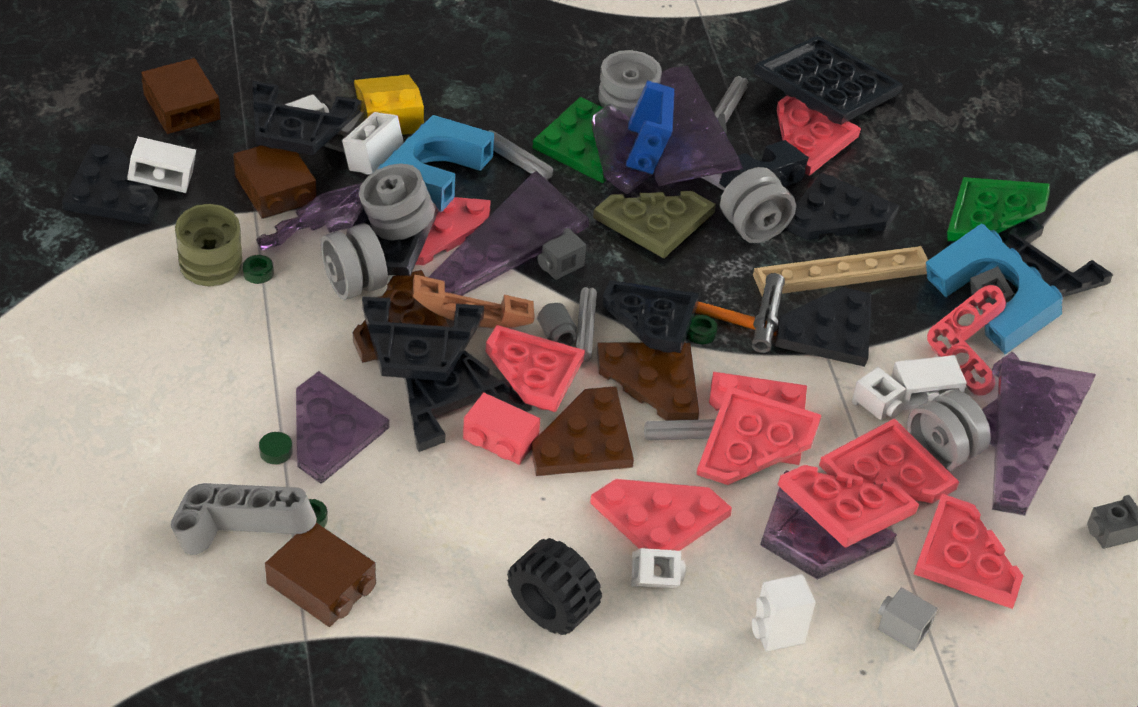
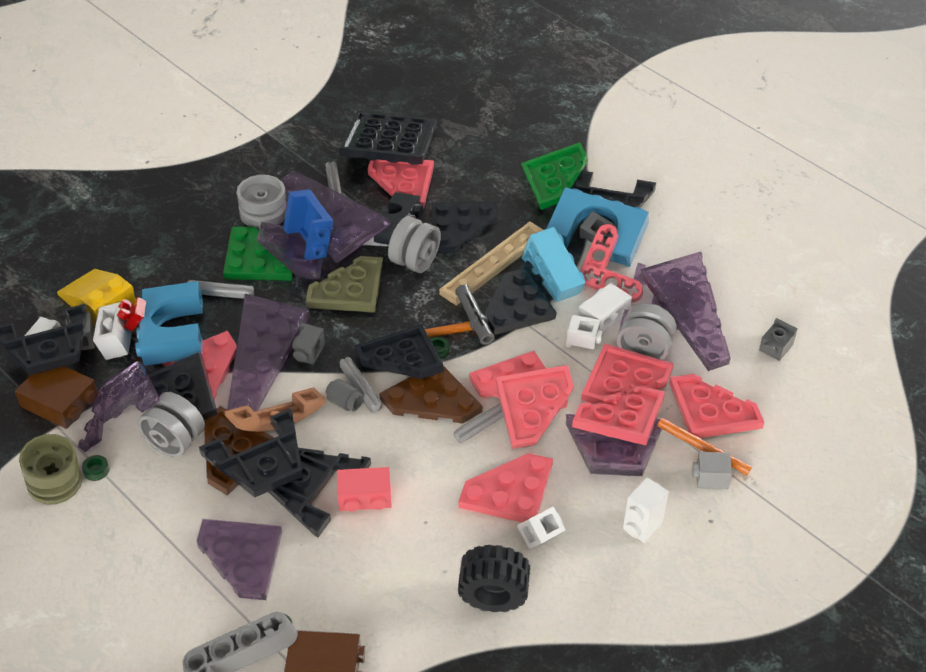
camera: 30 degrees left, 0 degrees up
(275, 447) = (214, 592): dark green tile -> none
(396, 201) = (174, 364): light grey wheel -> none
(400, 132) = (131, 312): none -> red tile
(534, 365) = (352, 432): coral plate -> none
(585, 436) = (421, 463): reddish brown plate -> none
(905, 304) = (554, 264): none -> medium azure wedge
(919, 587) = (700, 444): none -> orange bar

